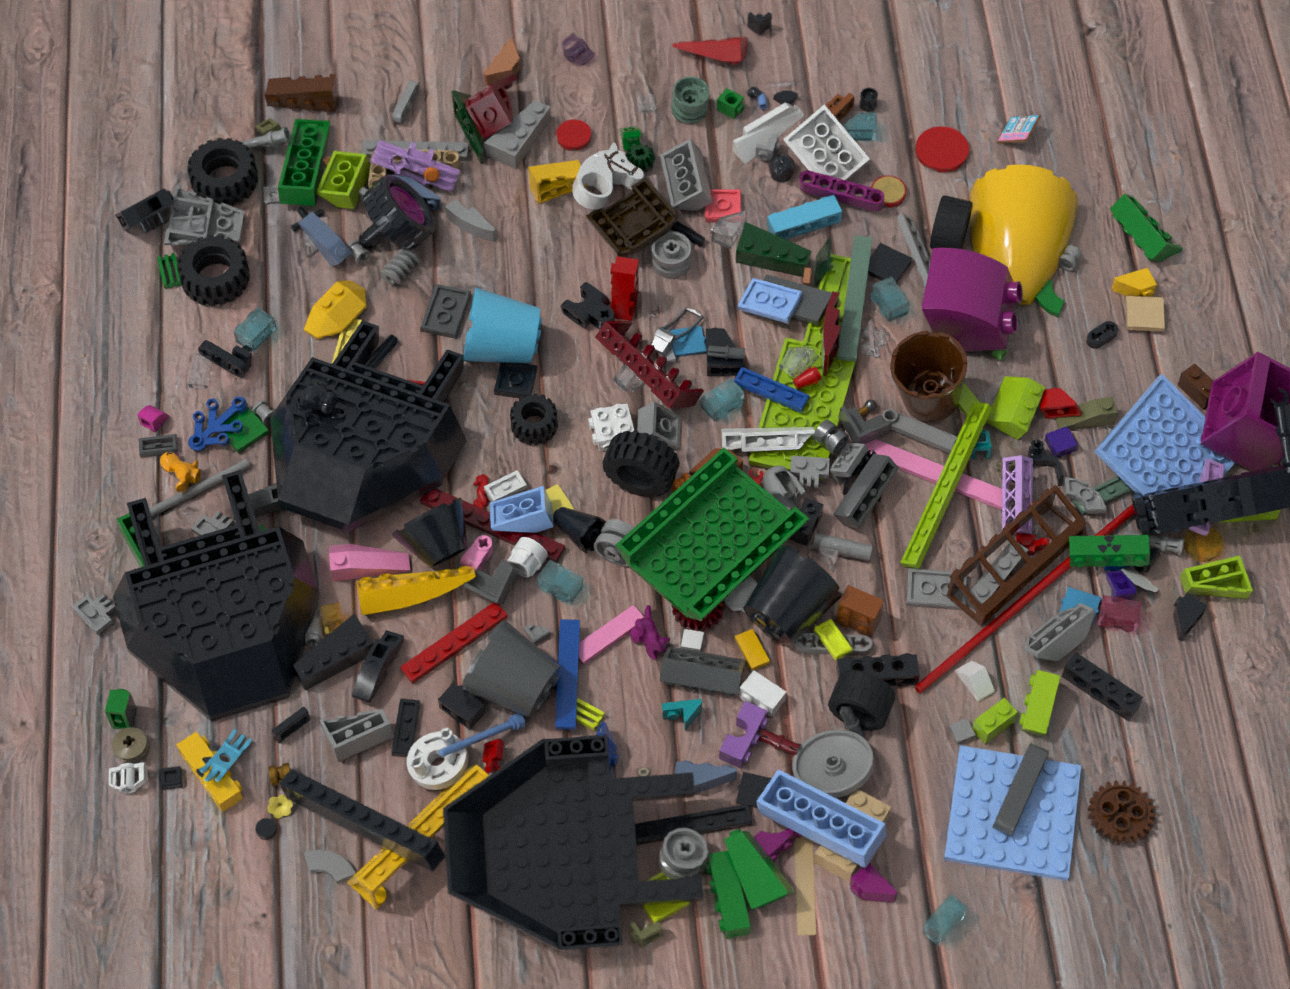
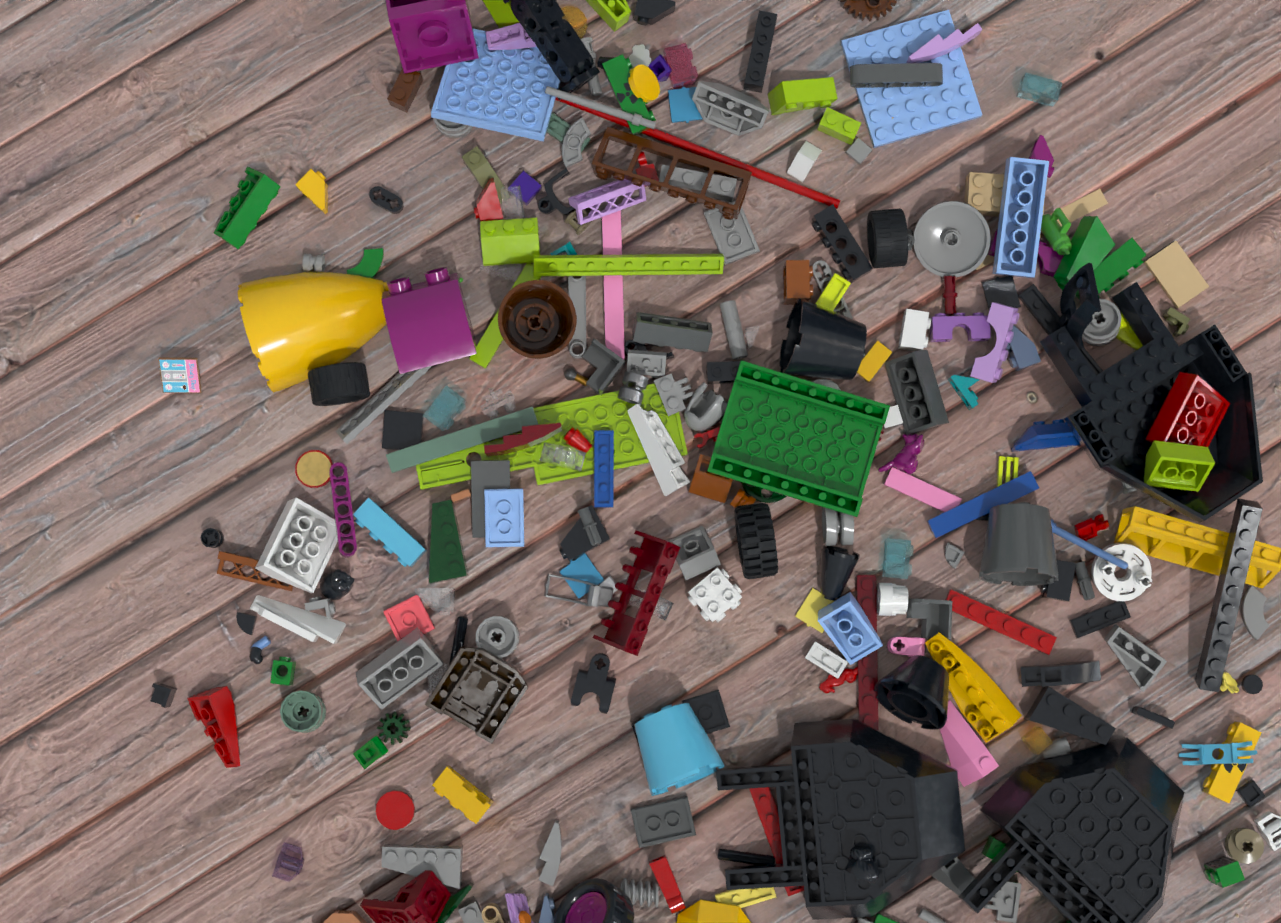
camera: 120 degrees left, 25 degrees up
(274, 775) = (1201, 700): pearl gold wheel -> none
(394, 290) = (667, 883): none -> red leg
(458, 730) = (1084, 581): none -> dark grey axle
(507, 823) = (1177, 466): none -> lime slope
(534, 406) = (759, 680): black tyre -> none
(542, 872) = (1189, 413): none -> red slope
(602, 172) = (437, 755): white animal -> none
(624, 287) = (567, 658): red wedge -> none
(692, 960) = (1176, 274): none -> tan tile
(722, 400) = (634, 509): clear light blue brick -> none
(724, 825) = (1078, 319): none -> black wedge
(730, 761) = (1002, 319): none -> lavender arch
(790, 856) = (1055, 233): none -> bright green piece
(823, 262) = (437, 488): clear green piece -> none
(862, 126) = (249, 528): clear light blue slope -> none
(942, 149) = (237, 440): red tile -> none
(1032, 841) = (938, 47): none -> lavender slope
(1049, 423) = (512, 202): none -> clear tile
(1081, 539) = (636, 119): none -> light grey bar
(1113, 562) = (644, 83): none -> yellow tile
(1145, 313) = (344, 170): tan tile -> none

